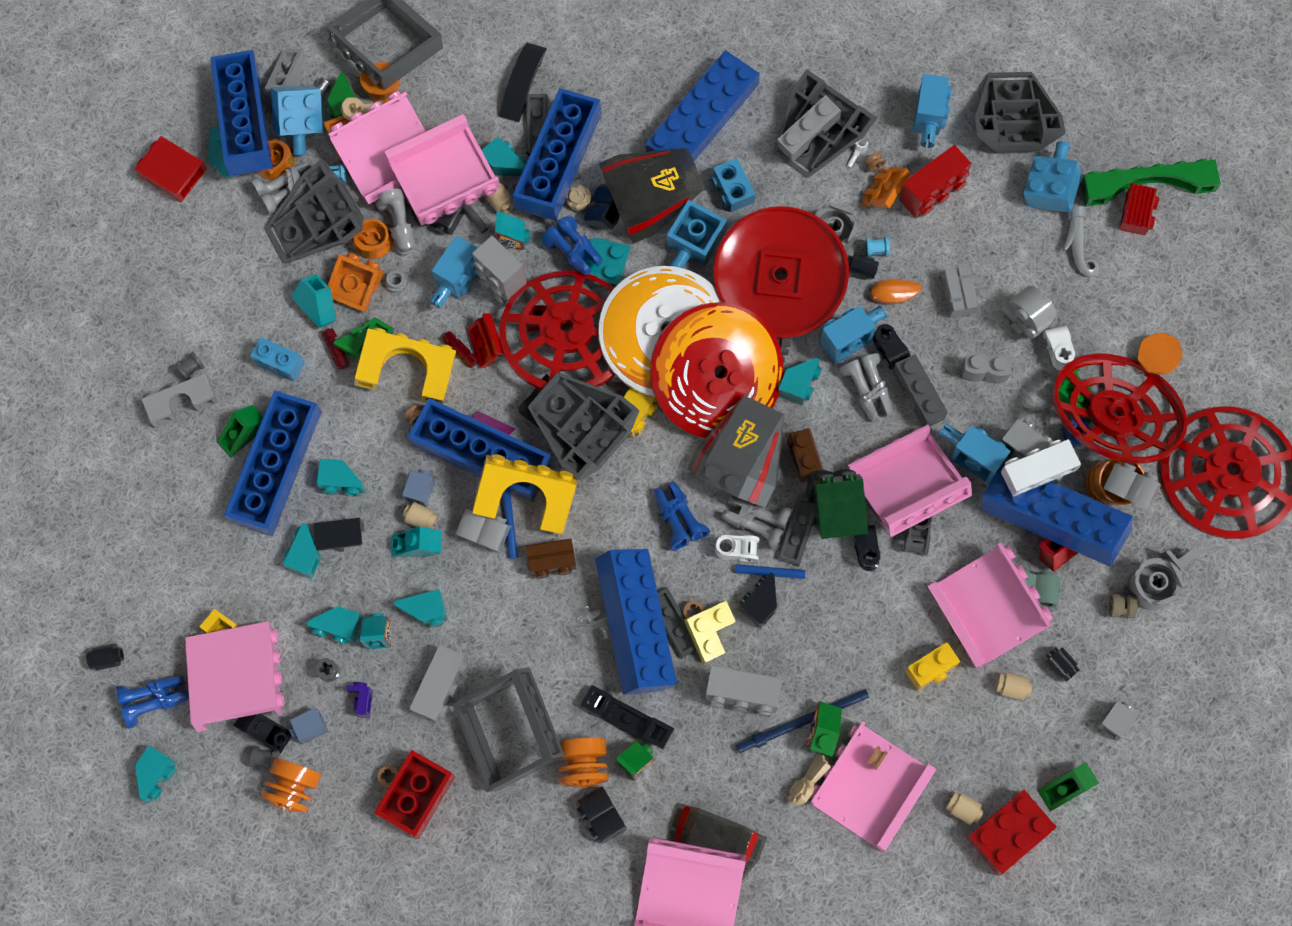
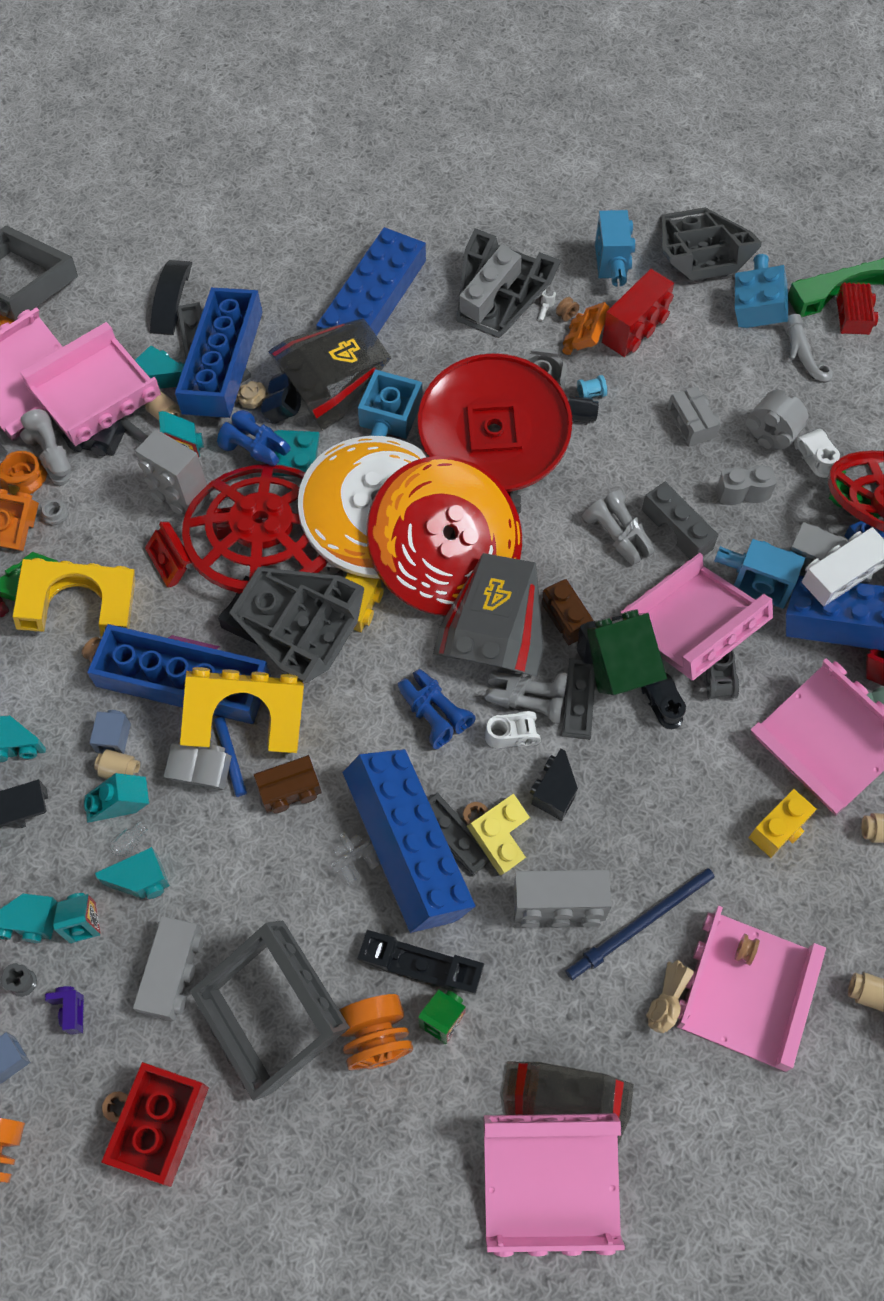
camera: 15 degrees left, 10 degrees down
(454, 271) = (119, 486): dark azure brick -> none
(461, 350) = (142, 572): dark red axle -> none
(602, 815) = (412, 1100): black brick -> none
(737, 184) = (420, 353): dark azure brick -> none
(762, 570) = (546, 752): blue bar -> none
(798, 379) = (539, 533): teal slope -> none
(824, 729) = (673, 927): green slope -> none
(850, 332) = (585, 473): dark azure brick -> none
(892, 348) = (633, 483): black piece -> none
(894, 291) = (622, 428): orange arm -> none

